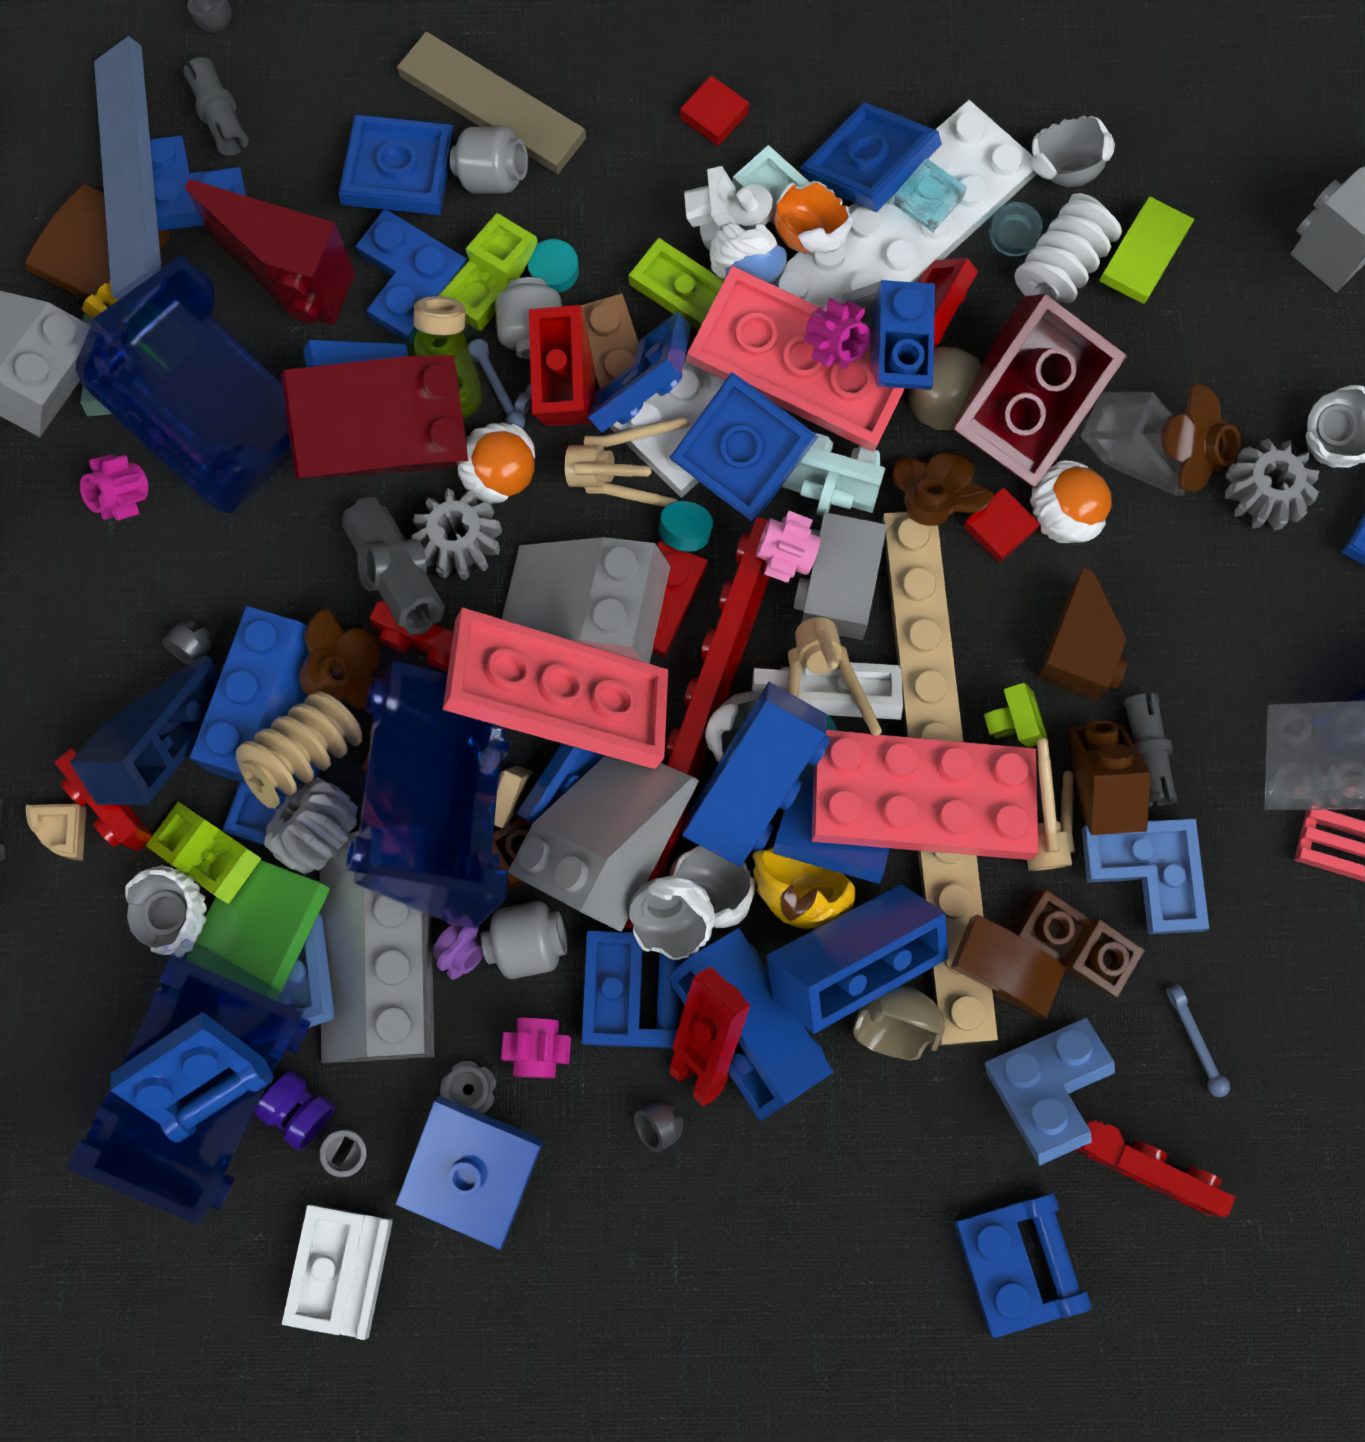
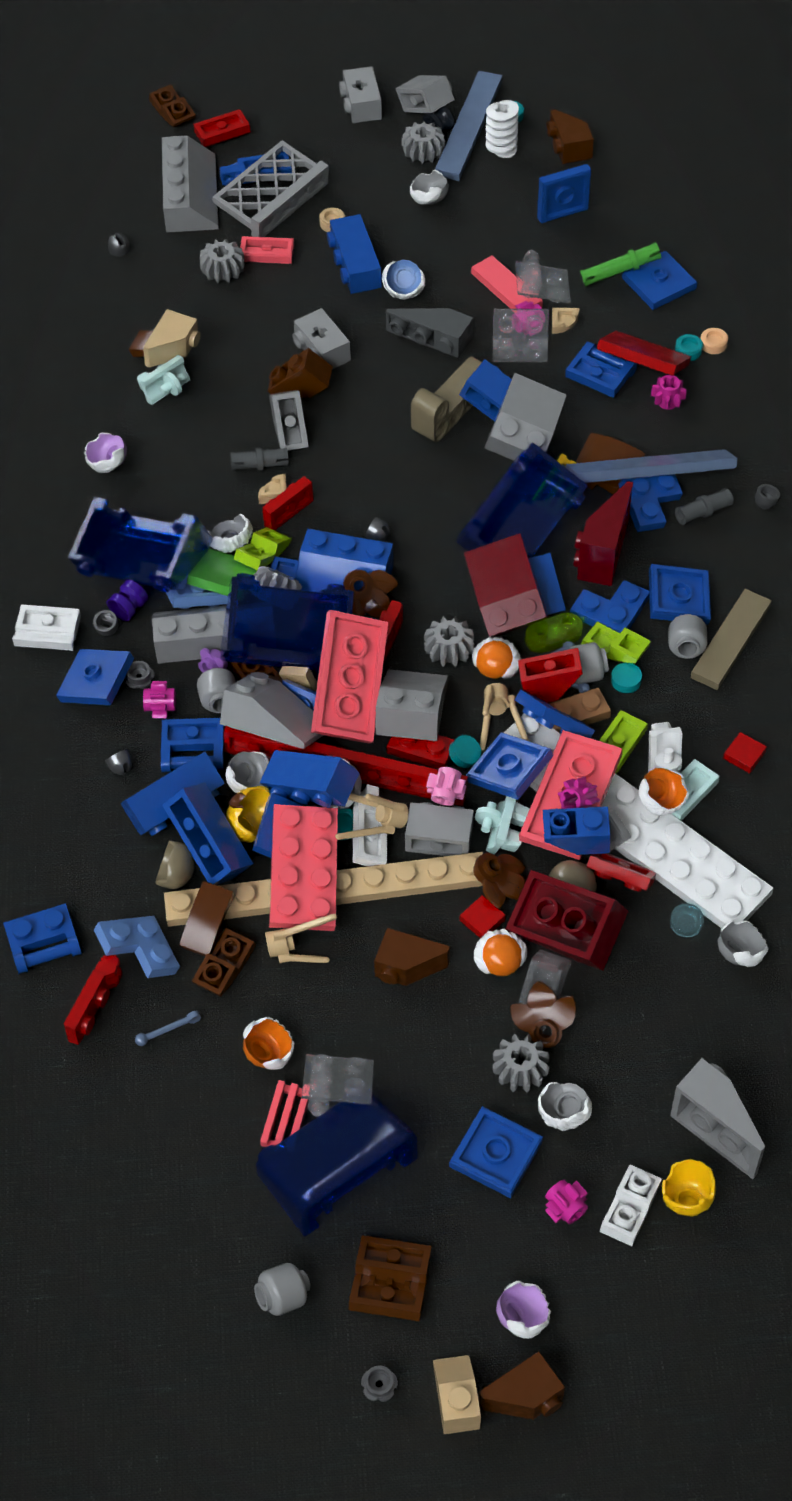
camera: 85 degrees right, 20 degrees down
(114, 487) = (461, 486): dark pink gear -> none
(148, 740) = (316, 509): dark blue slope -> none
(182, 1064) = (146, 538): blue plate -> none
(294, 743) = (311, 568): tan piece -> none
(392, 566) = (423, 606): dark grey piece -> none
(439, 315) = (580, 618): tan tile -> none
(671, 916) = (227, 742): light grey hair -> none
(708, 1034) = (161, 765): red hinge -> none
(747, 250) = (634, 764): white hair -> none
(871, 156) = (720, 831): blue plate -> none
(929, 195) = (694, 860): clear light blue plate -> none
(1020, 717) = (358, 926): lime tile -> none
(1069, 250) = (669, 944): white piece -> none
(1109, 778) = (321, 969): reddish brown slope -> none
(1146, 250) = (678, 990): lime slope -> none
(1150, 741) = (342, 997): dark grey pin -> none
(1166, 863) = (275, 1001): medium blue plate -> none
(1245, 870) = (267, 1044): none -> orange hair

